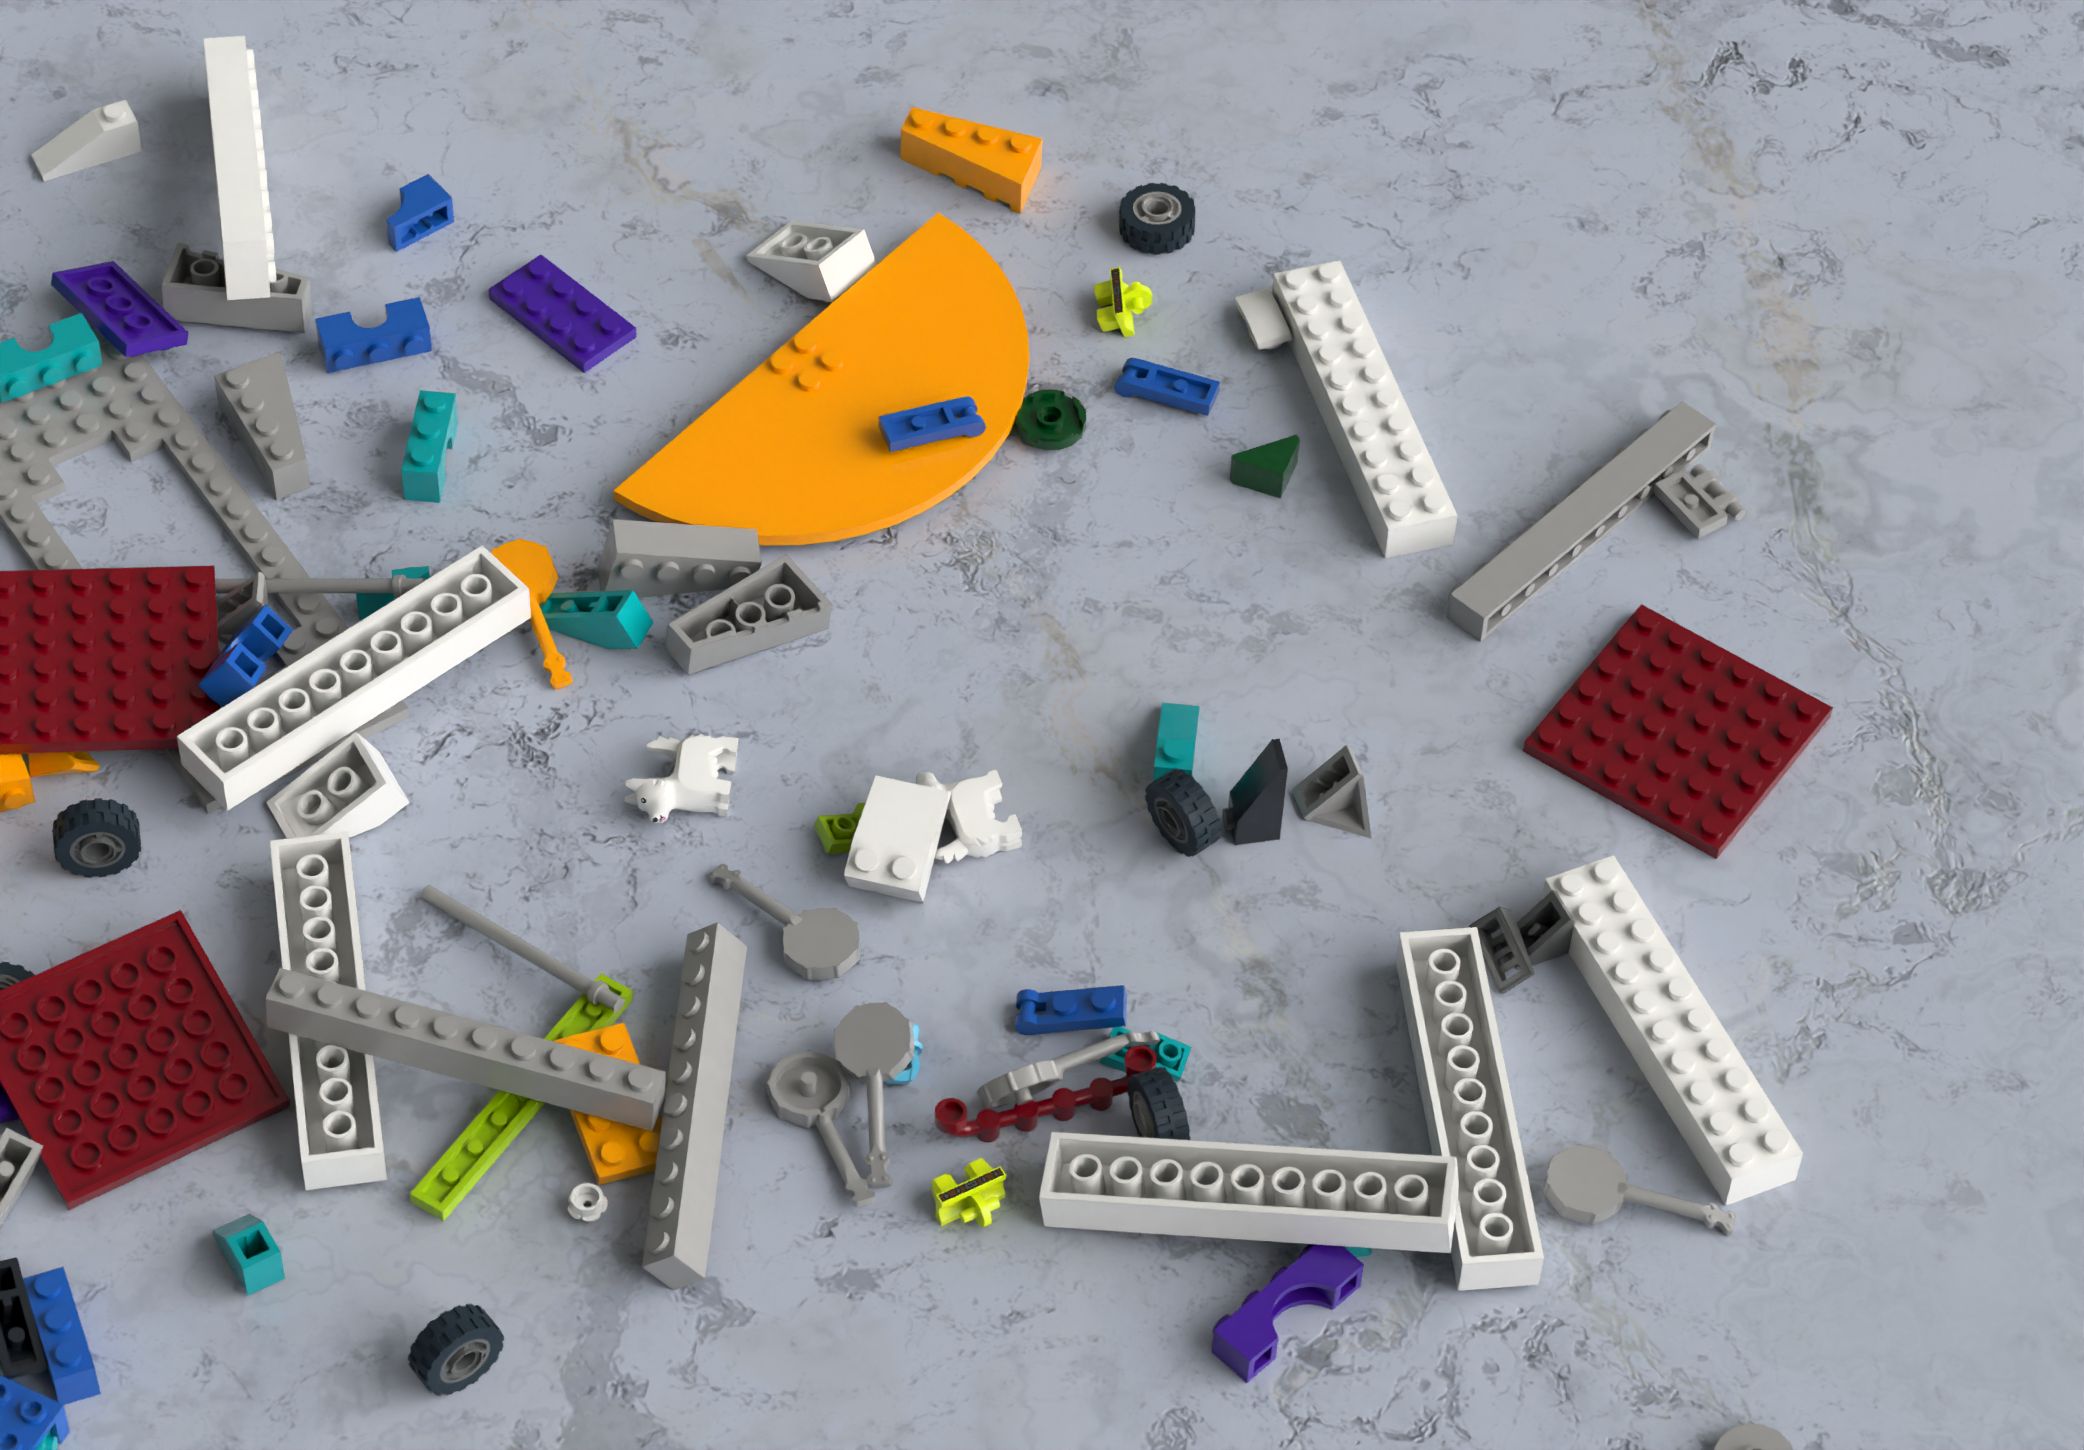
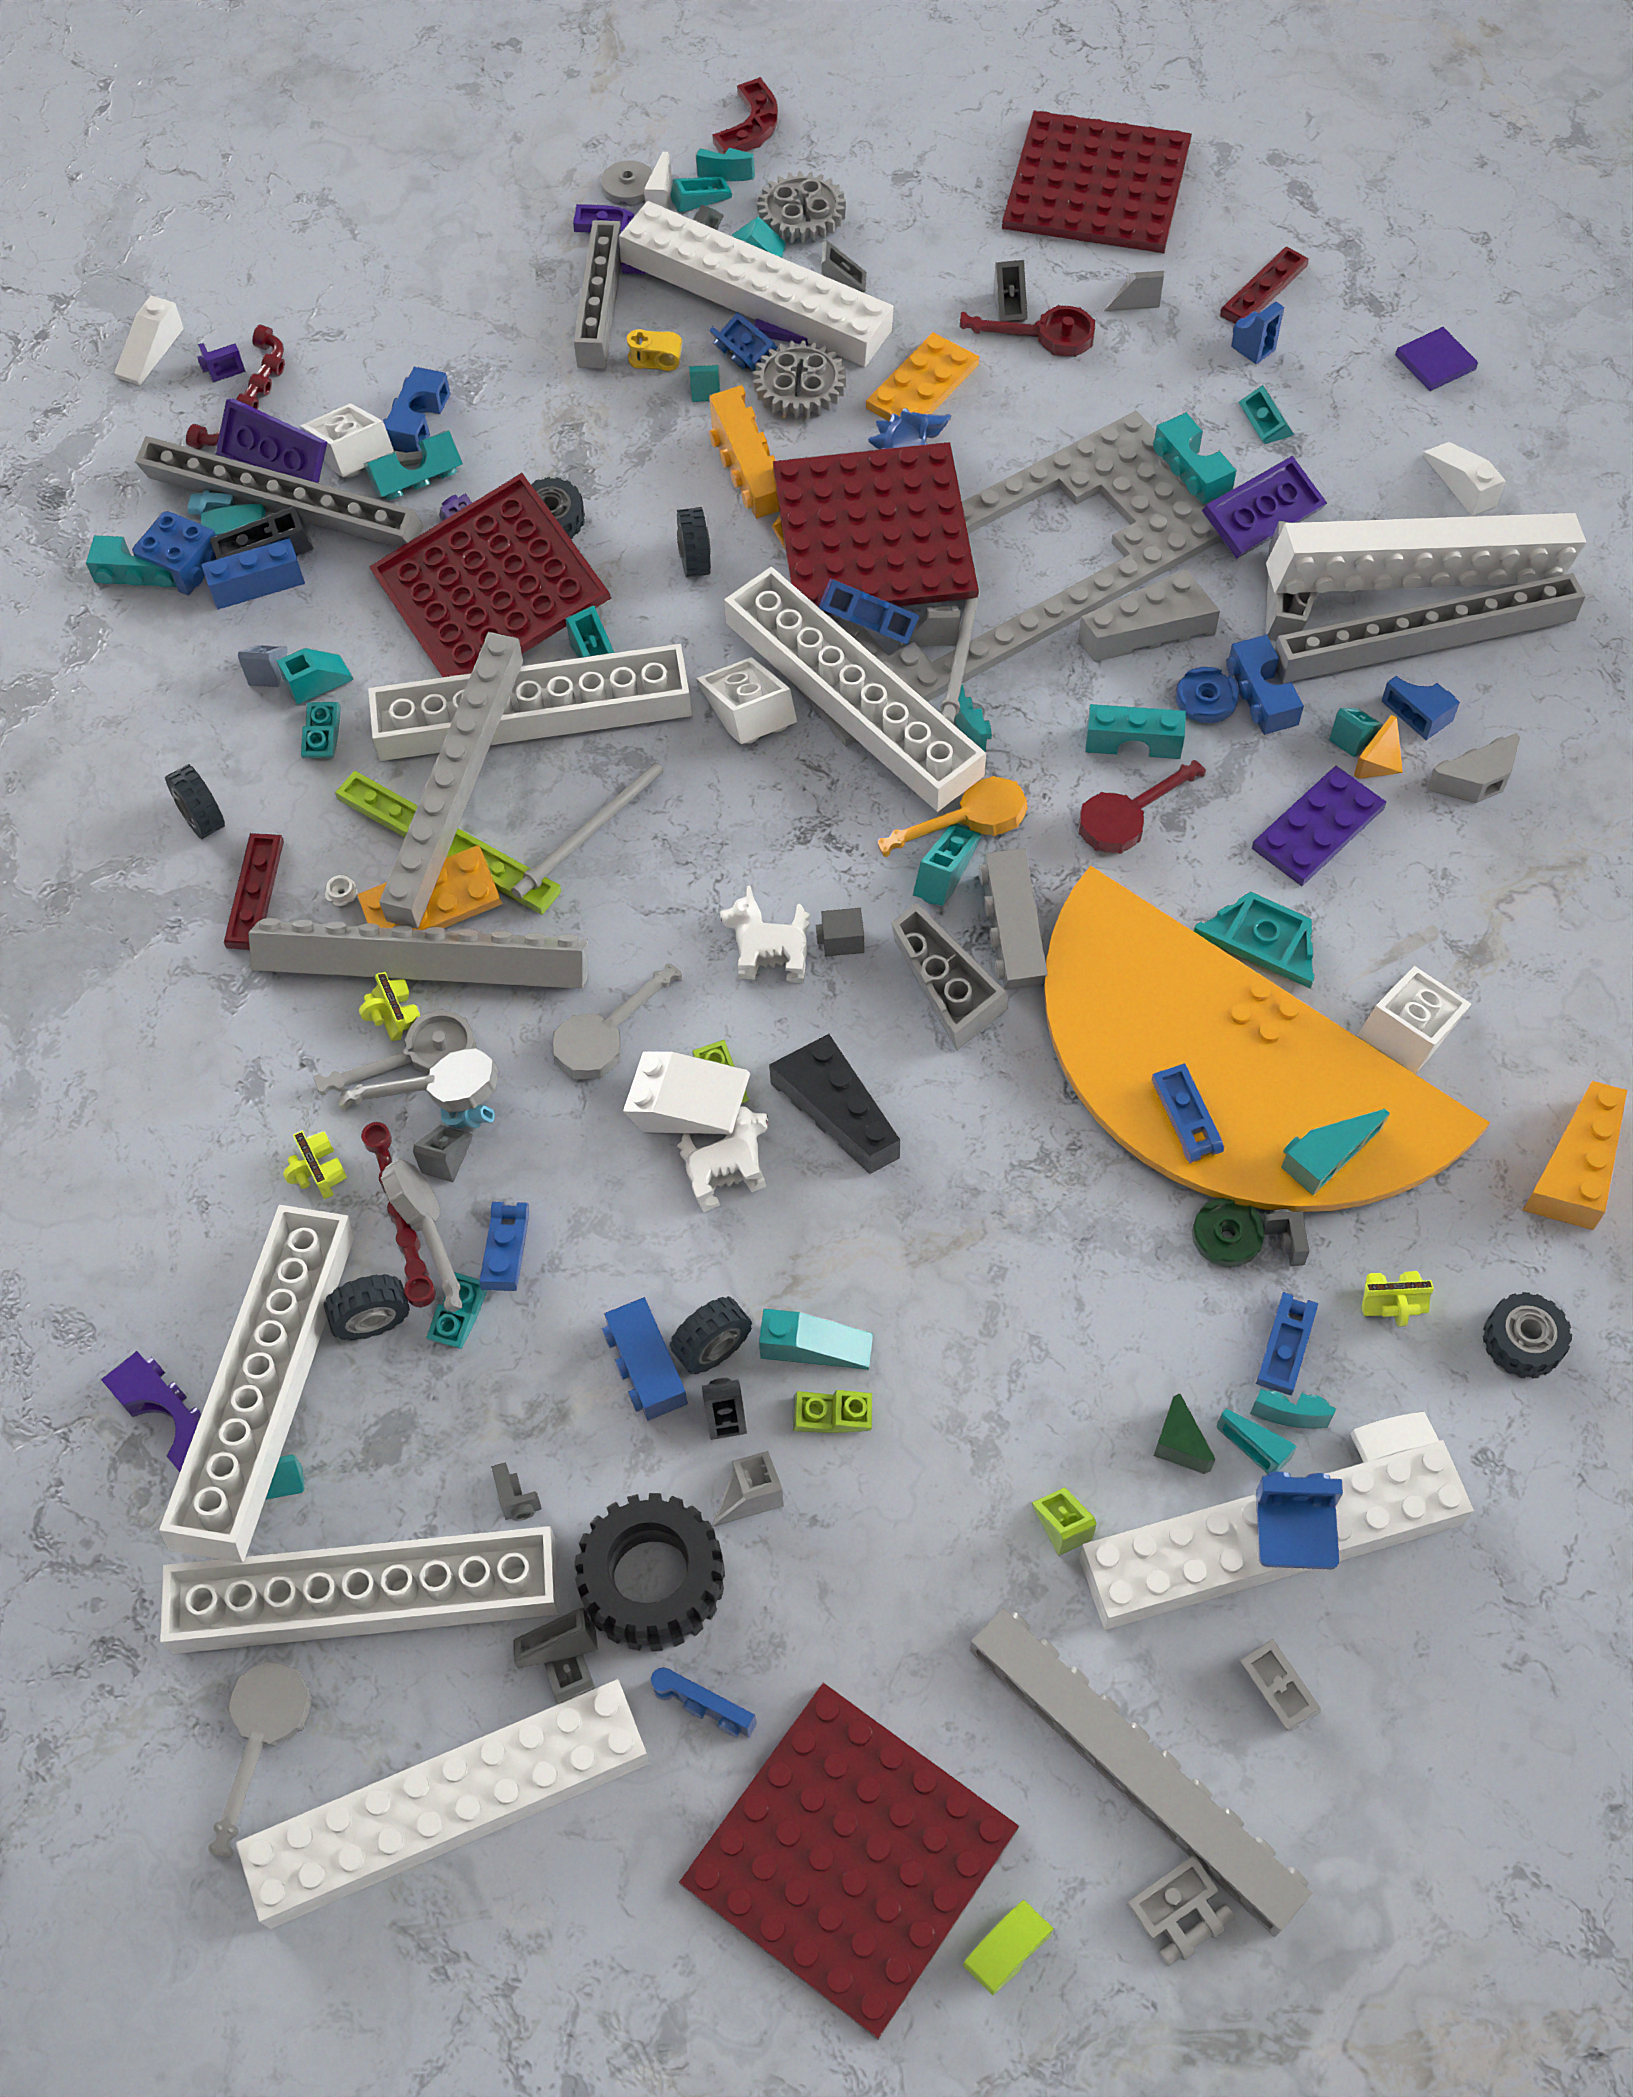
camera: 95 degrees right, 10 degrees up
(213, 1313) = (261, 665): none -> sand blue slope
(234, 954) = (587, 634): none -> teal slope
(318, 189) = (1428, 627): none -> light grey brick
(332, 1249) = (321, 730): none -> teal slope
(379, 386) = (1210, 683): none -> blue plate
(444, 268) = (1353, 730): none -> teal slope
(470, 252) = (1382, 753): none -> light orange slope
(509, 173) = (1477, 772): none -> light grey slope
(543, 475) = (1116, 822): none -> dark red piece
(576, 1301) = (253, 888): none -> dark red tile
(681, 710) = (841, 932): none -> dark grey brick
(704, 364) = (1264, 935): none -> teal wing
(760, 1136) = (384, 1007): none -> neon yellow hips
(900, 716) = (832, 1094): none -> black wedge
(953, 1072) = (442, 1152): none -> dark grey slope
(980, 322) = (1328, 1148): none -> teal slope
(1057, 368) = (1293, 1234): none -> dark grey bracket
(1200, 881) = (644, 1359): none -> blue brick
(1237, 386) = (1309, 1412): none -> teal slope
(1248, 731) = (832, 1413): none -> lime slope
(1273, 413) = (1259, 1444): none -> teal slope
(1353, 994) = (508, 1491): none -> dark grey bracket
(1357, 554) = (1065, 1520): none -> lime slope
(1367, 367) = (1298, 1520): none -> blue bracket
(1432, 825) = (642, 1523): none -> black tyre
(1500, 411) = (1280, 1685): none -> light grey hinge
(1553, 830) = (702, 1701): none -> blue plate
(1748, 613) = (1007, 1947): none -> lime slope

